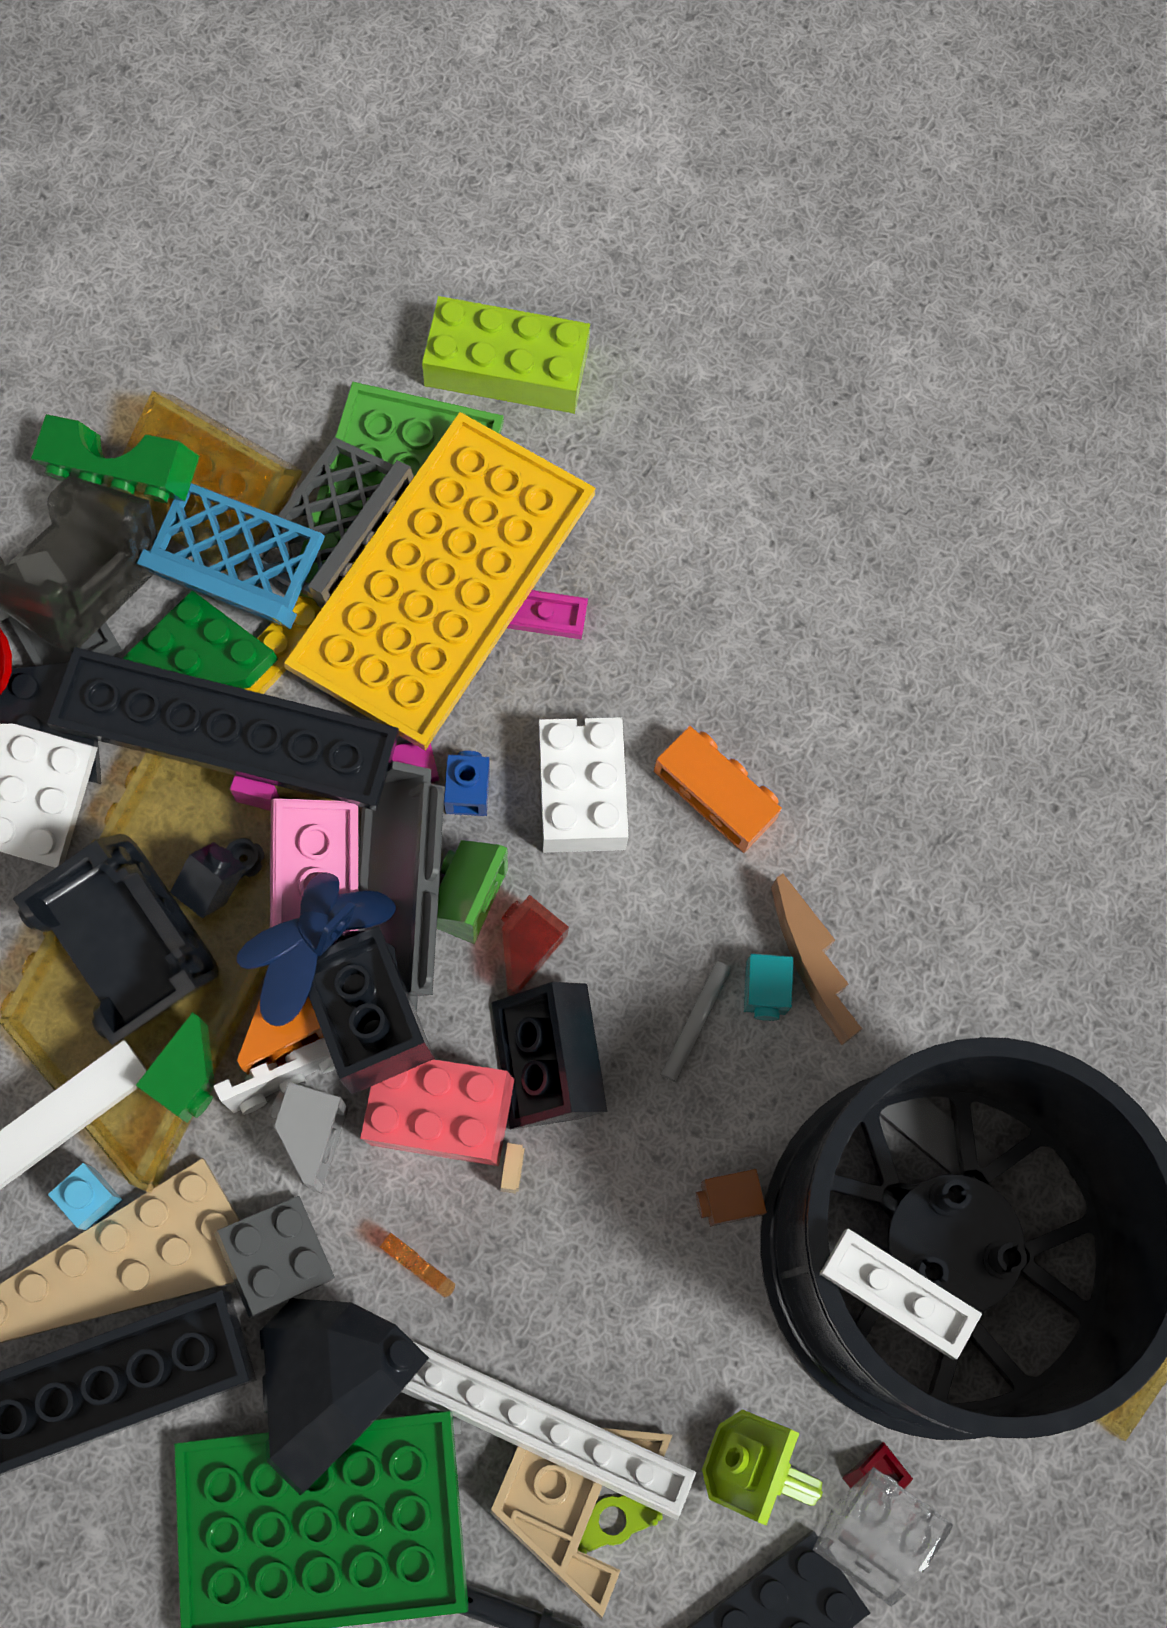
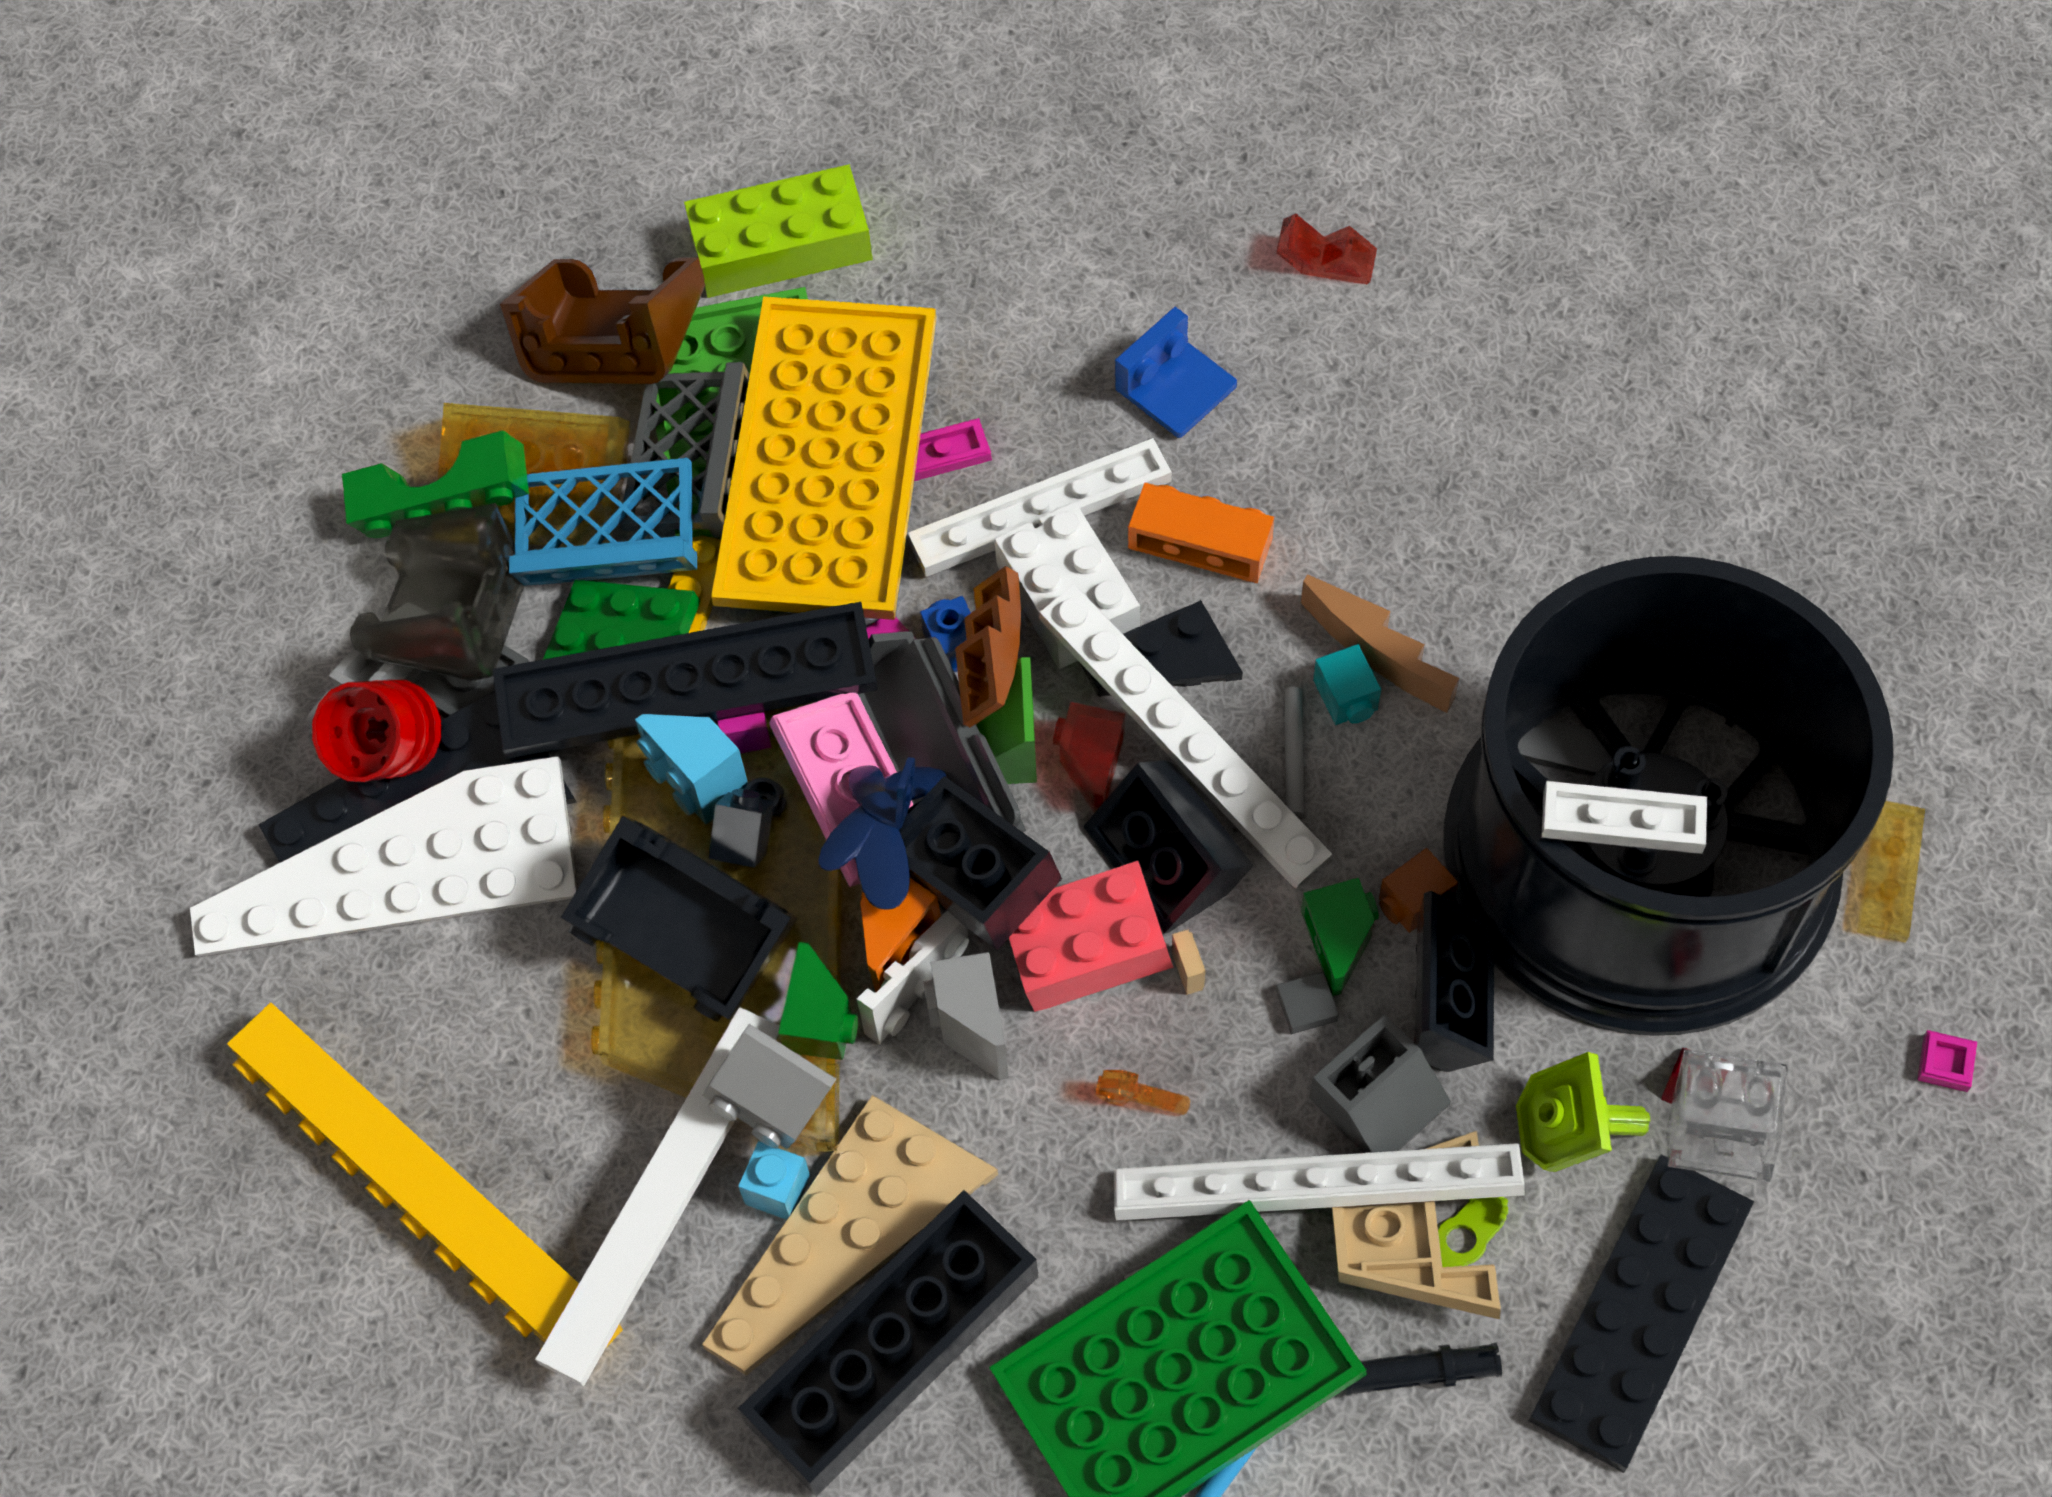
camera: 15 degrees left, 10 degrees down
(100, 1132) = (767, 1088): none -> light grey slope
(197, 802) = (693, 760): none -> medium azure slope
(274, 1256) = (994, 1149): dark grey plate -> none
(313, 379) = (590, 335): none -> reddish brown windscreen
(328, 1381) = (1116, 1222): black brick -> none
(476, 829) = (992, 646): none -> dark orange slope
(580, 699) = (1089, 485): none -> white plate
(593, 1249) = (1307, 1003): none -> dark grey tile
(607, 970) = (1185, 736): none -> white plate
(609, 1364) = (1379, 1089): none -> dark grey slope
(631, 880) = (1182, 649): none -> black wing
(651, 1200) = (1340, 928): none -> green slope
(716, 1304) = (1454, 985): none -> black slope
(765, 637) = (1171, 376): none -> blue bracket
(955, 586) = (1336, 256): none -> clear red slope
(1100, 1567) = (1947, 1061): none -> dark pink tile

